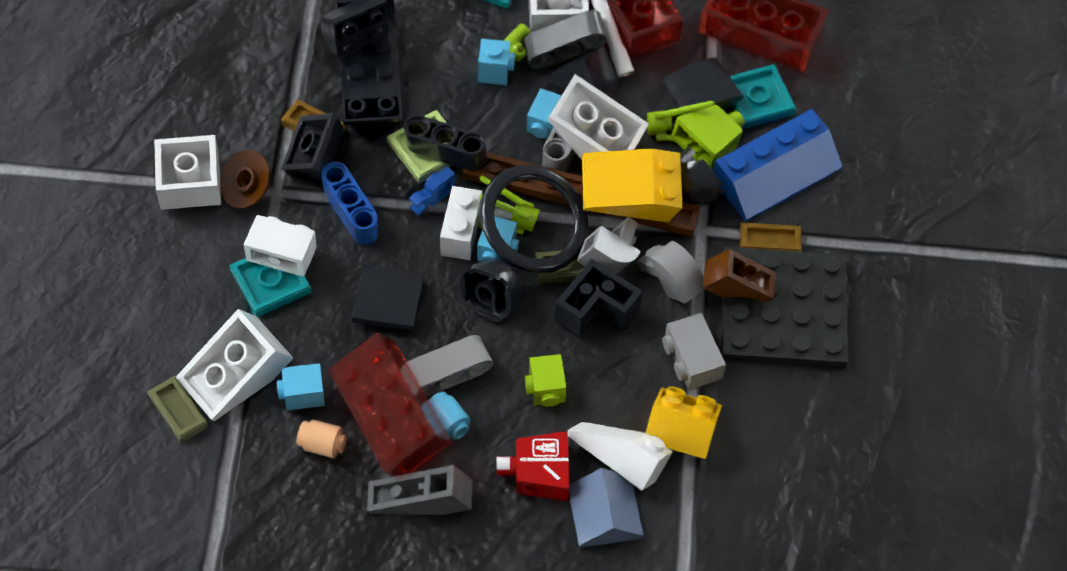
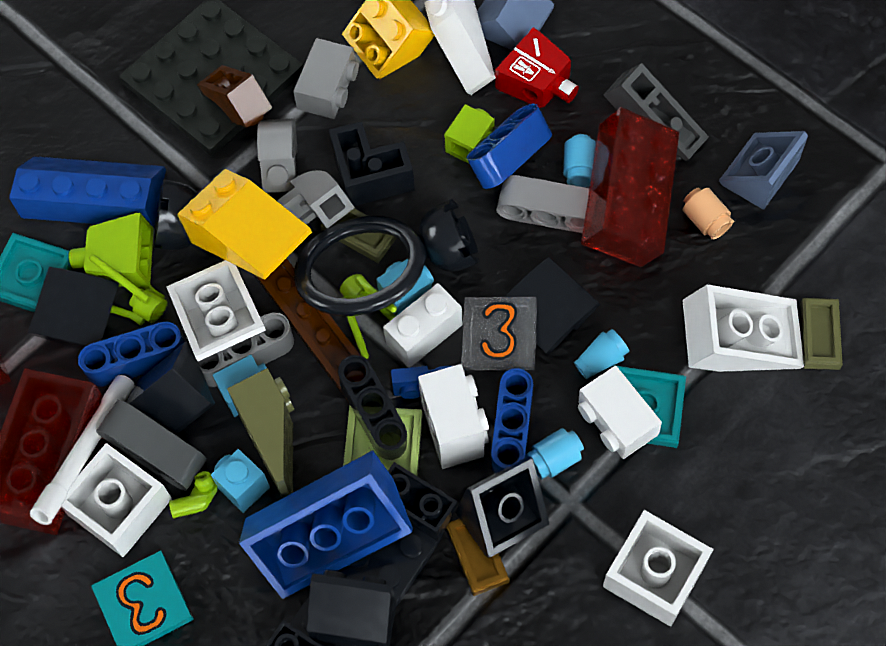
camera: 135 degrees left, 5 degrees up
(245, 179) = (610, 518): reddish brown dish -> none
(301, 387) = (695, 262): medium azure brick -> none
(305, 506) = (764, 165): none -> sand blue slope
(307, 203) = (556, 453): none -> medium azure brick
(323, 289) = (601, 354): none -> medium azure cone
(388, 169) = (453, 415): none -> white brick
(405, 253) = (499, 333): none -> clear tile
(415, 60) = (326, 525): none -> blue slope
(497, 87) = (265, 411): none -> olive slope
(507, 383) = (509, 146): none -> blue beam
(639, 81) = (117, 348): none -> blue beam
(770, 236) = (163, 136): pearl gold tile -> none

